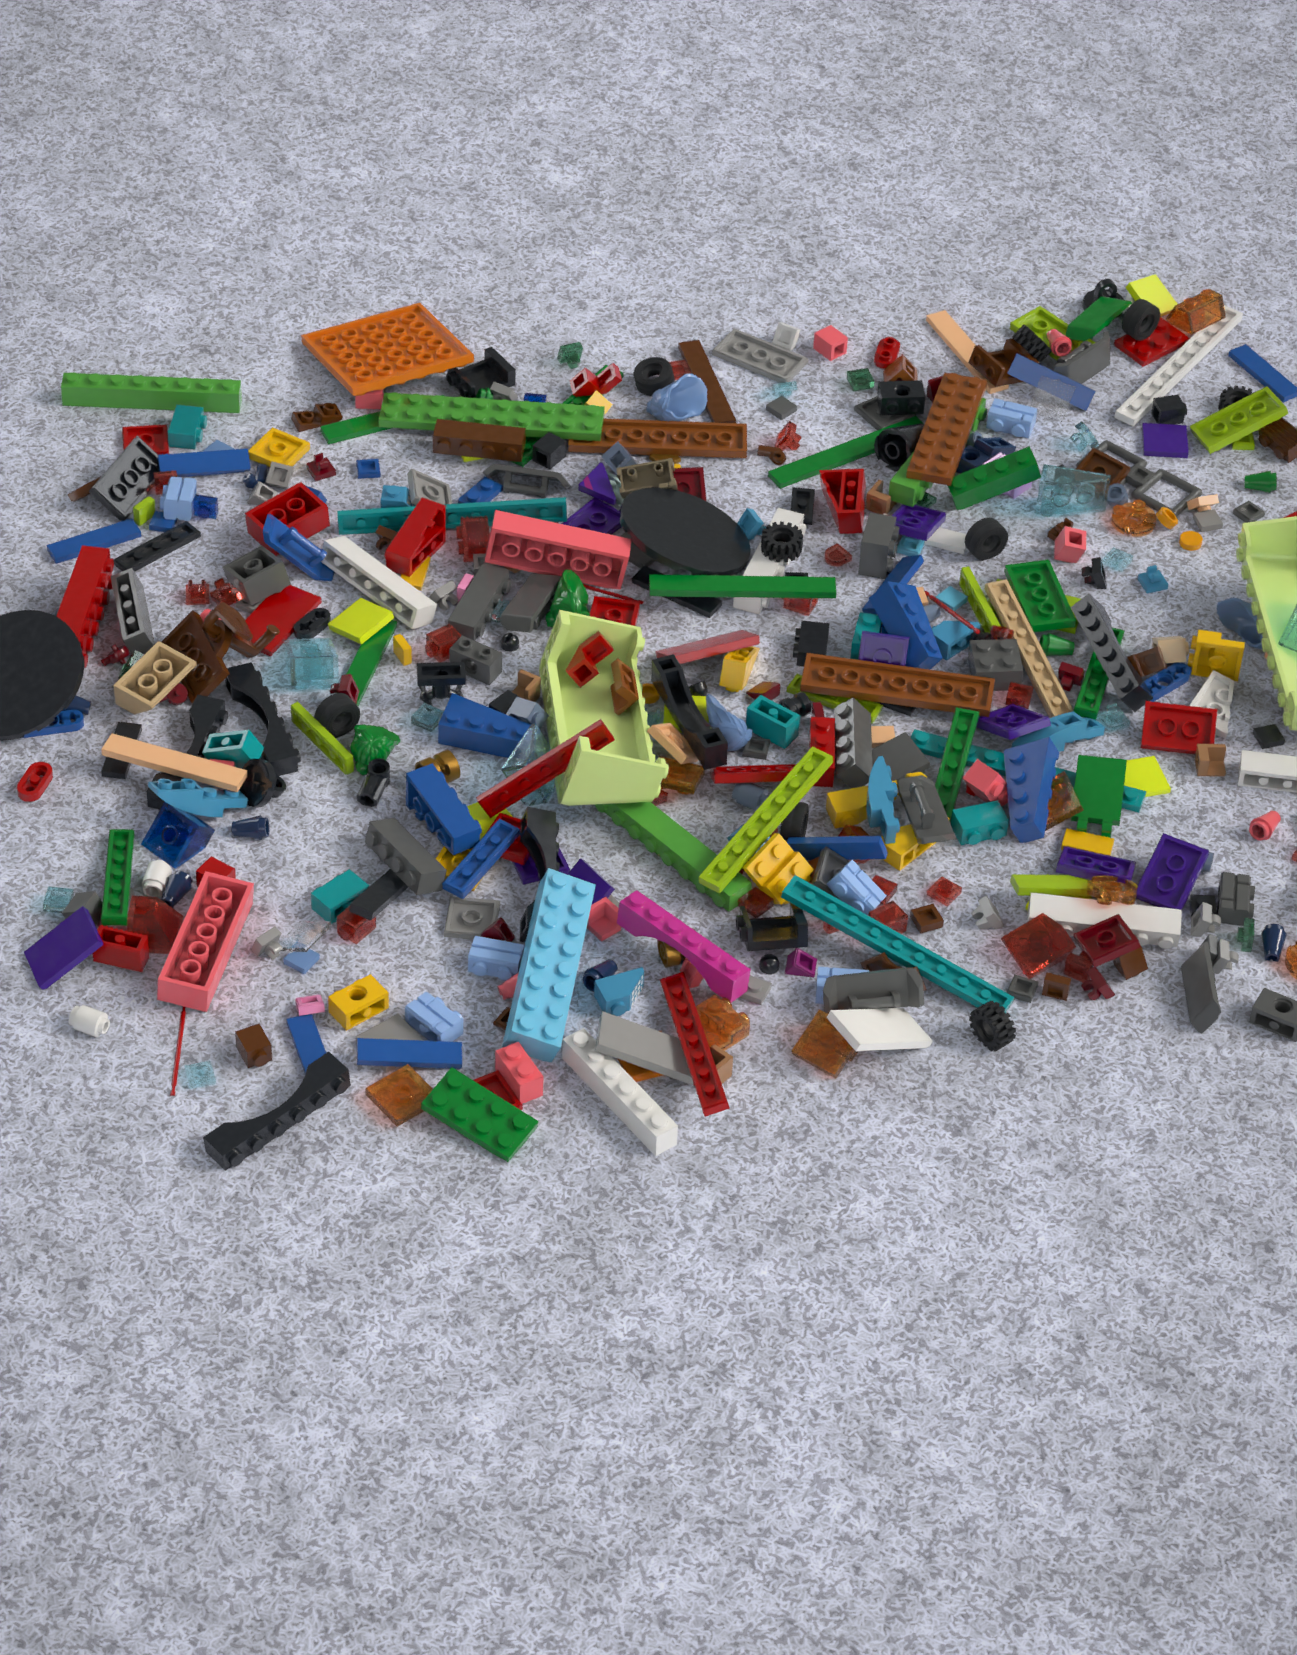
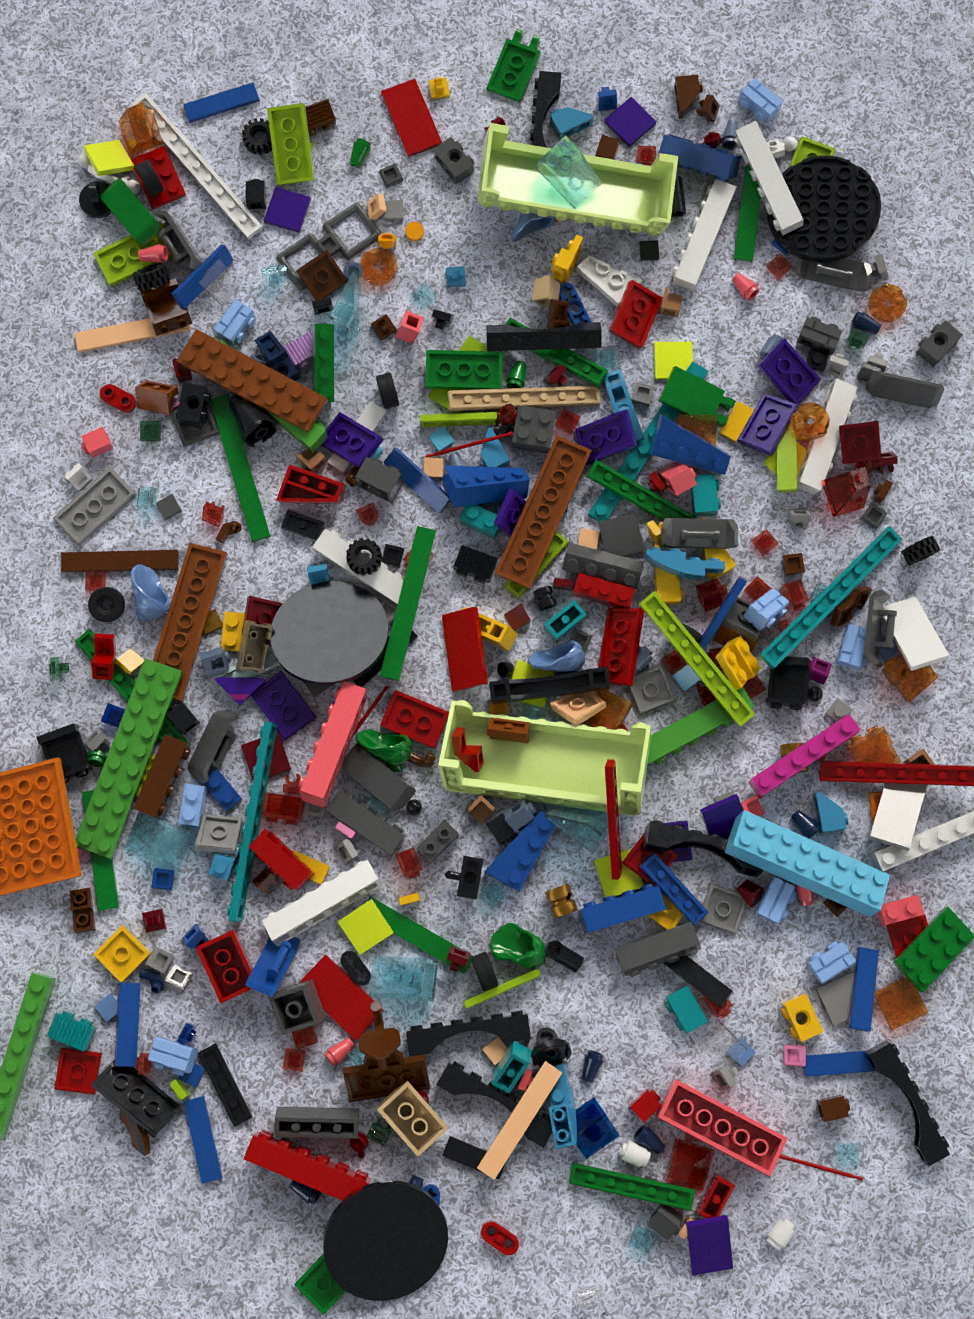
camera: 75 degrees left, 35 degrees up
(404, 454) = (158, 841): none -> clear light blue slope
(456, 470) = (192, 805): none -> light blue brick
(718, 816) = (651, 689): none -> light grey tile
(1081, 748) = (642, 394): none -> light grey plate

